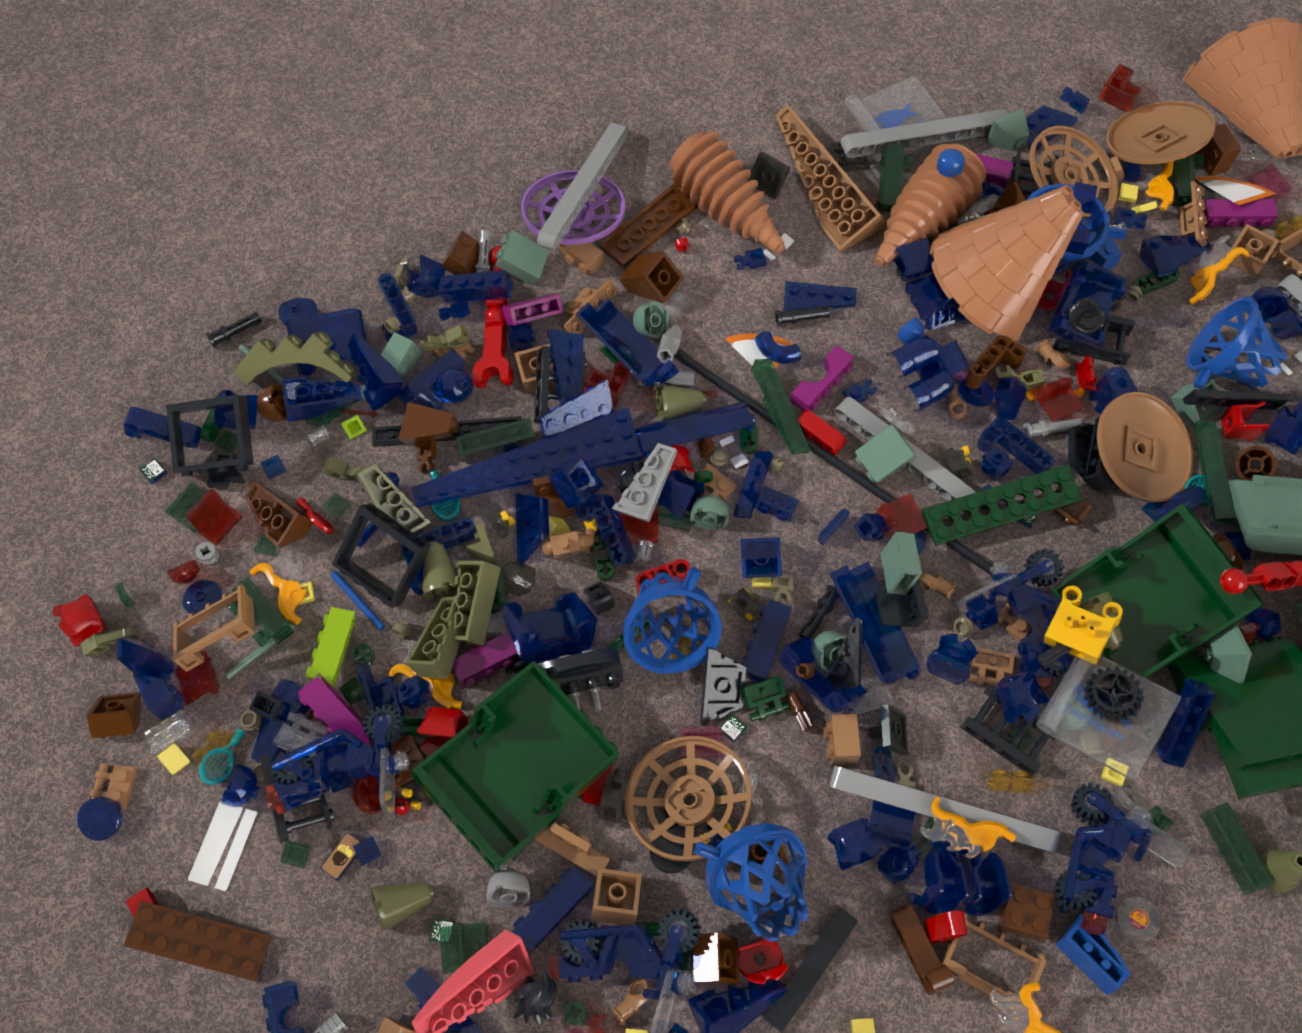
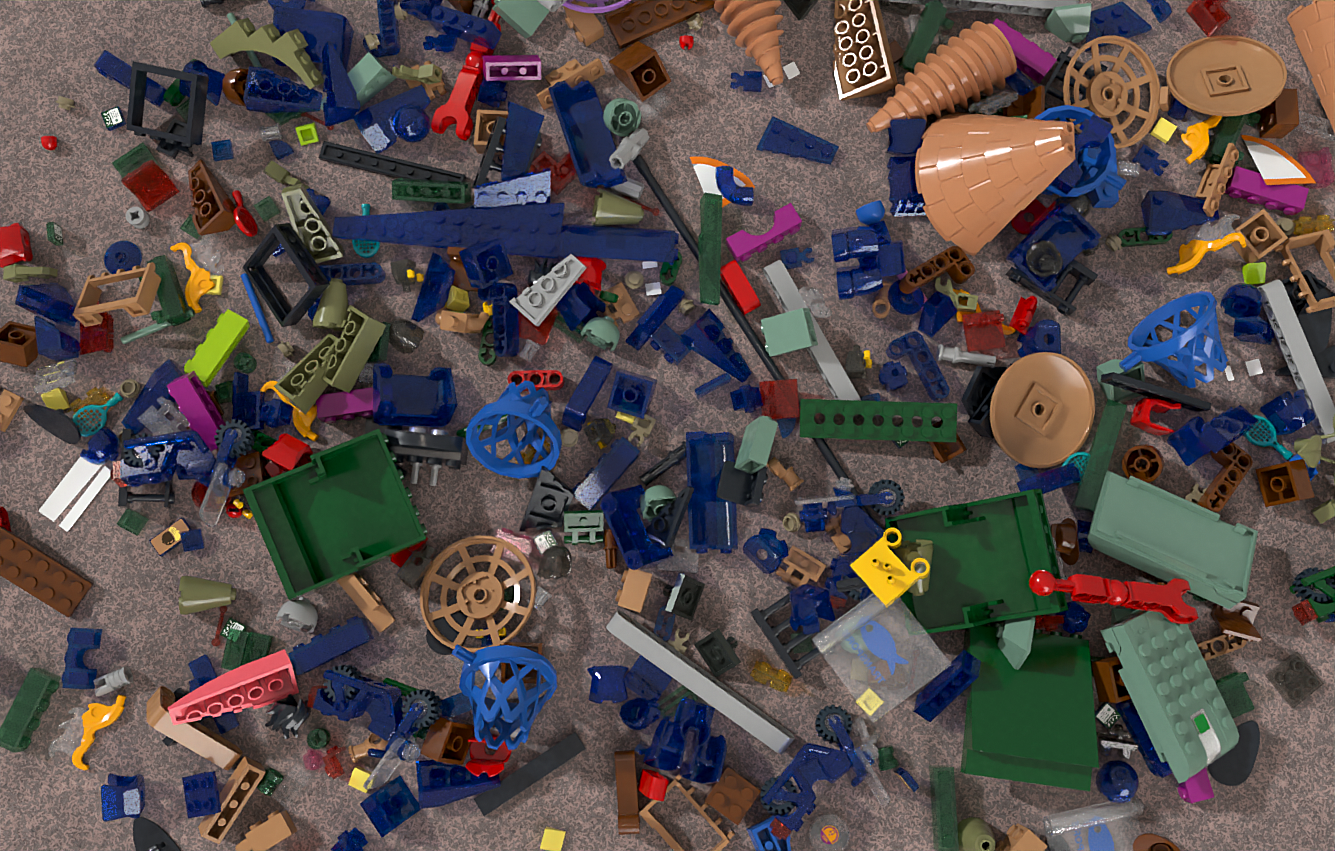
camera: 20 degrees right, 15 degrees up
(93, 512) = (49, 142): none -> red hinge
(99, 471) = (65, 103): none -> dark tan plate
(180, 779) = (54, 422): none -> black shield
(184, 573) = (111, 229): clear red hair -> none
(266, 705) = (145, 381): black slope -> none
(332, 447) = (280, 149): none -> clear blue tile
(425, 453) = (364, 184): reddish brown plate -> none
(426, 423) = (368, 156): reddish brown slope -> none
(426, 950) = (216, 642): none -> clear red hinge
(482, 548) = (384, 297): olive slope -> none
(599, 597) = (471, 379): black slope -> none
(616, 897) = (385, 656): medium nougat brick -> none
(705, 447) = (624, 267): reddish brown tile -> none
(713, 919) = (455, 705): none -> clear blue tile
(718, 570) = (585, 393): none -> clear blue beam
(752, 742) = (555, 563): none -> clear smoke hair
(793, 316) = (765, 156): black pin -> none
(805, 671) = (622, 519): reddish brown axle -> none
(809, 487) = (710, 342): none -> clear blue wedge
(949, 773) = (718, 652): none -> pearl dark grey tile
(950, 162) = (977, 48): blue hair -> none
(963, 834) = (701, 713): piece -> none
(1050, 354) = (1004, 289): medium nougat connector -> none
(1133, 696) = (882, 634): black gear -> none
(1145, 207) = (1171, 153): light yellow tile -> none
(1188, 831) = (906, 779): none -> clear blue tile
(1263, 279) = (1254, 273): none -> lime slope

